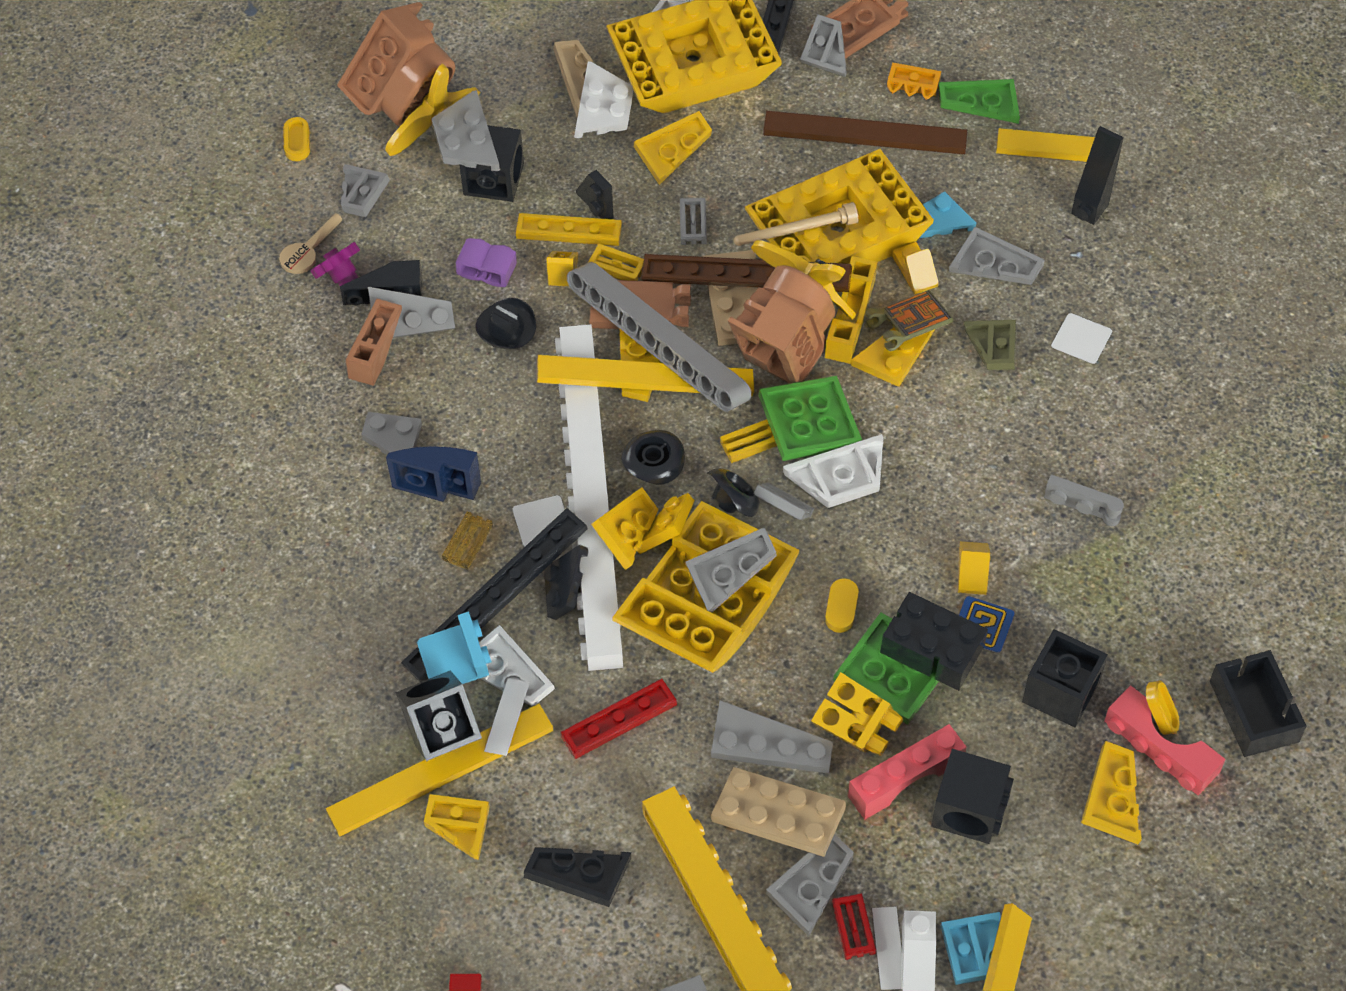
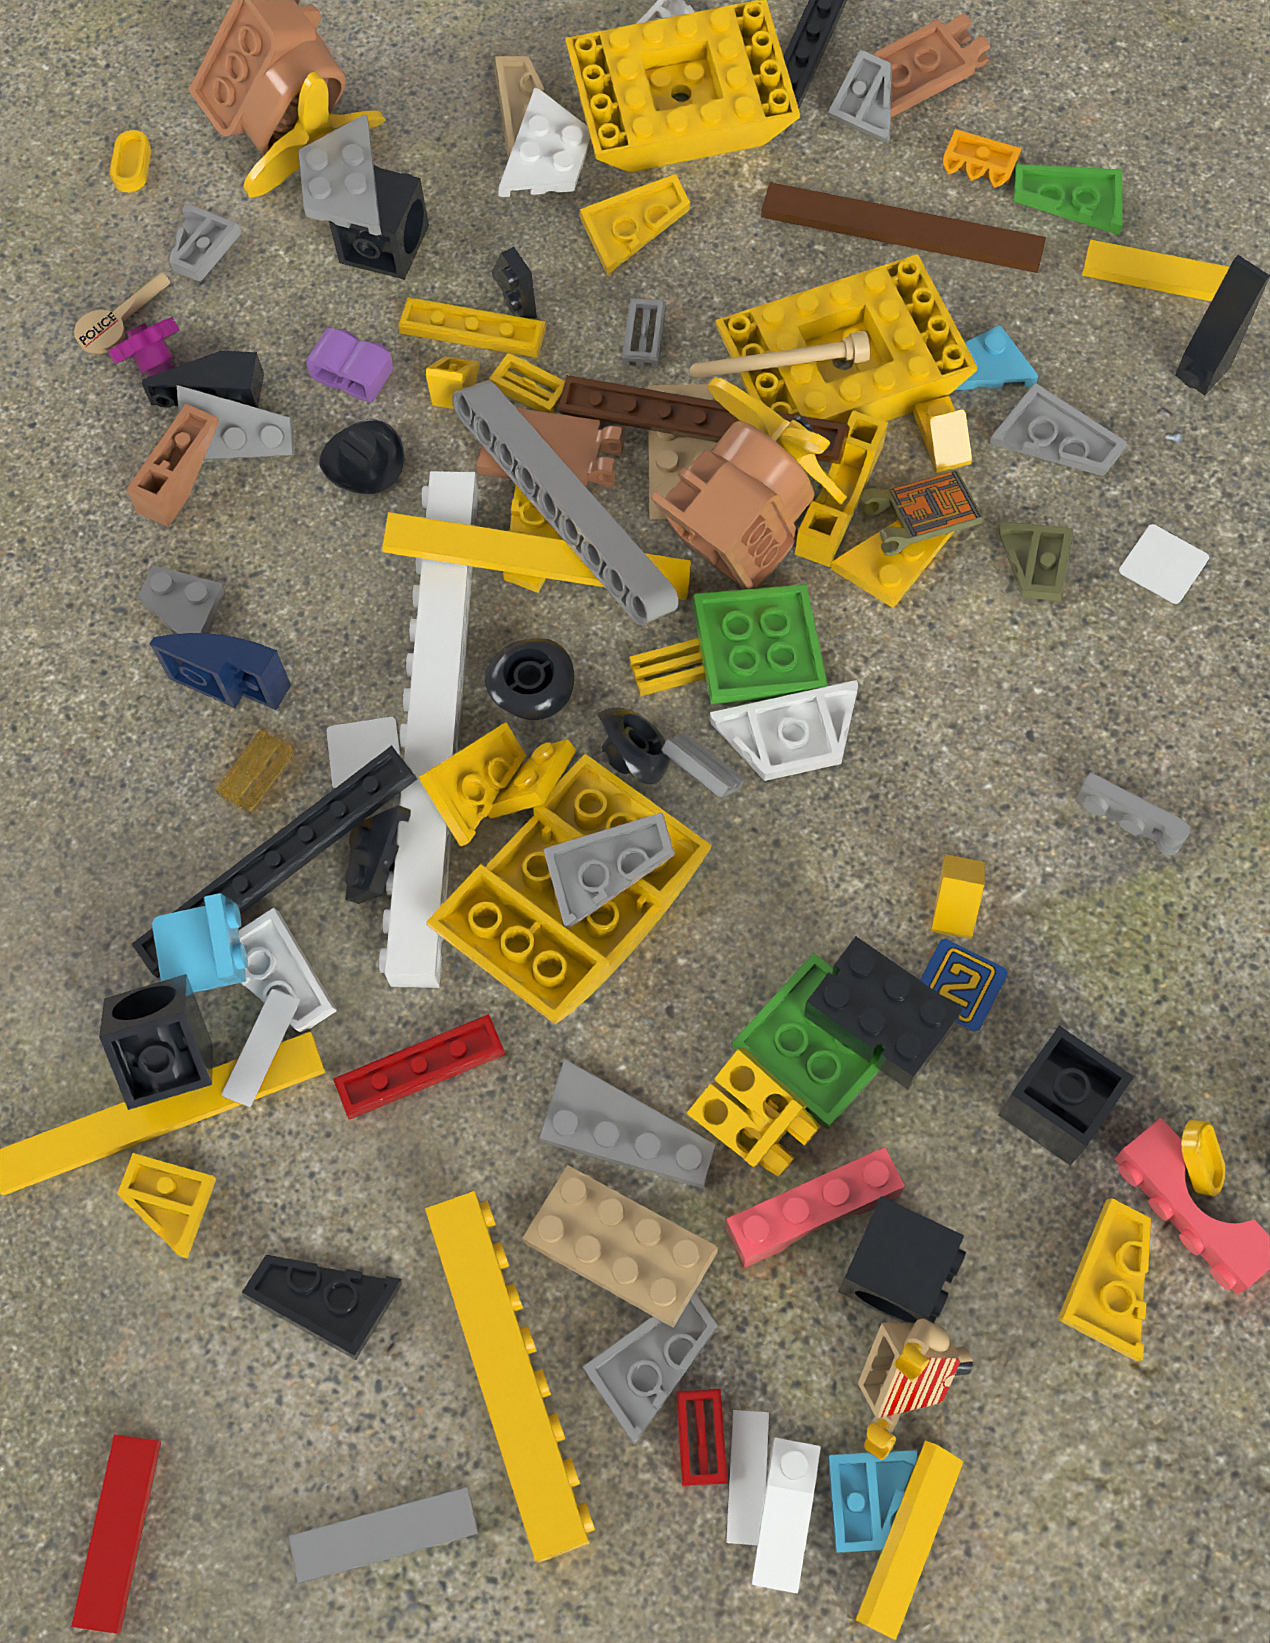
camera: 10 degrees right, 10 degrees up
(841, 605) = (761, 932): yellow tile -> none
(986, 861) = (905, 1372): none -> tan torso

